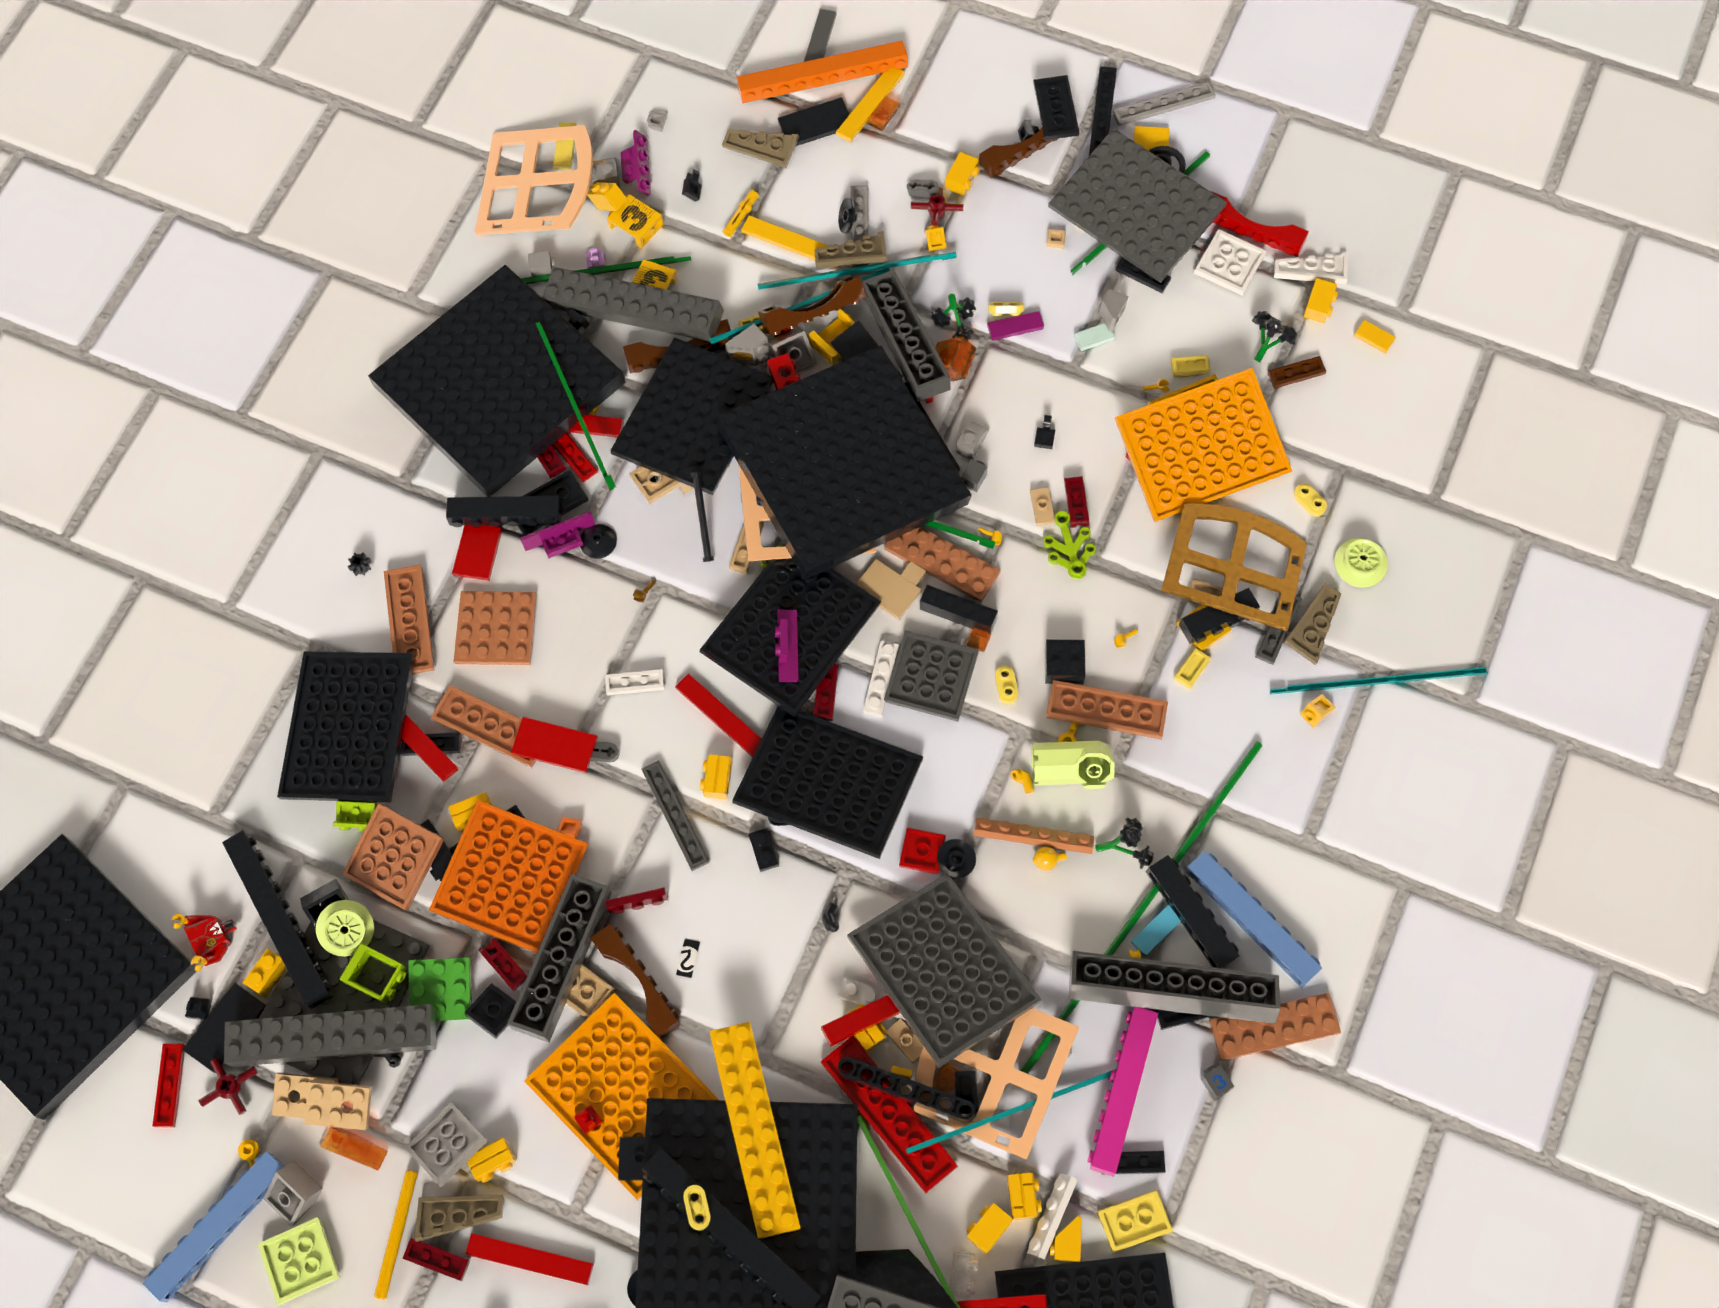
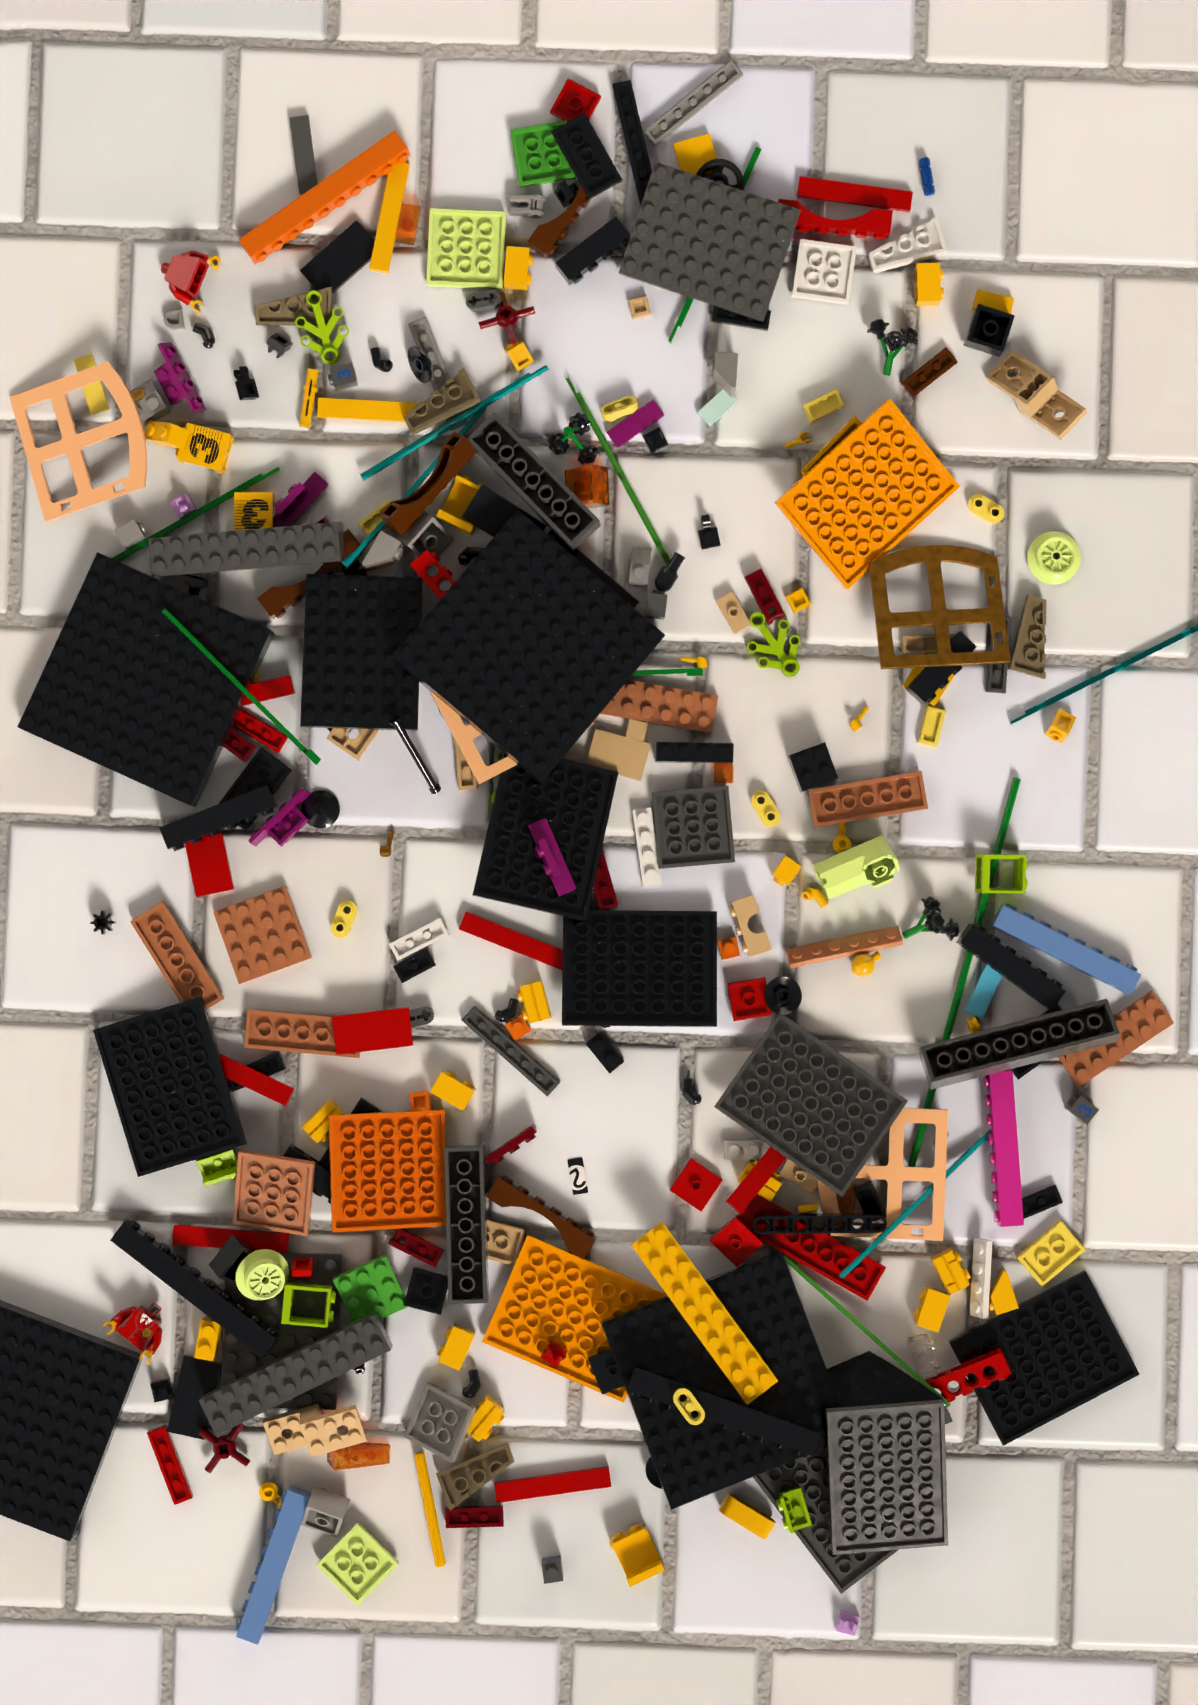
camera: 25 degrees left, 20 degrees up
(314, 879) = (217, 1237): none -> red tile
(385, 936) = (302, 1267): none -> red tile
(496, 1076) = (456, 1346): none -> yellow brick
(496, 1124) = (474, 1385): none -> black arm
(577, 641) = (345, 919): none -> light yellow plate
(604, 829) = (453, 1090): none -> yellow brick
(620, 704) = (414, 965): none -> black plate
(677, 139) = (207, 335): none -> black arm
(682, 89) = (186, 275): none -> torso
(688, 779) = (509, 1012): none -> black arm
(691, 796) = (518, 1027): none -> orange plate
(698, 283) = (298, 500): none -> magenta bracket
(735, 165) = (279, 343): none -> black tile
(775, 165) = (323, 331): none -> lime plant
(777, 206) = (343, 376): none -> dark grey brick
(799, 1010) = (696, 1184): none -> red plate
(813, 207) = (379, 362): none -> black arm
(817, 1078) = (736, 1241): none -> red plate
(921, 797) = (728, 948): none -> orange plate
(924, 146) = (466, 248): none -> yellowish green plate
(950, 766) = (753, 942): none -> tan arch
(986, 365) = (618, 470): none -> bright green piece
(990, 132) = (530, 211): none -> light grey piece
(995, 453) = (668, 575): none -> black arm
(1003, 745) = (785, 871): none -> yellow brick
(1015, 99) = (539, 156): none -> bright green plate
(1028, 344) = (655, 440): none -> black tile
(1032, 181) = (592, 251): none -> black brick
(1064, 65) = (575, 101): none -> red plate
(1106, 517) = (798, 600): none -> yellow tile
(1193, 815) = (982, 873): none -> lime window
(1279, 212) = (854, 194): none -> red tile
(1349, 220) = (926, 175): none -> blue axle
(1363, 352) = (989, 330): none -> black brick
(1390, 417) = (1036, 394): none -> tan bracket

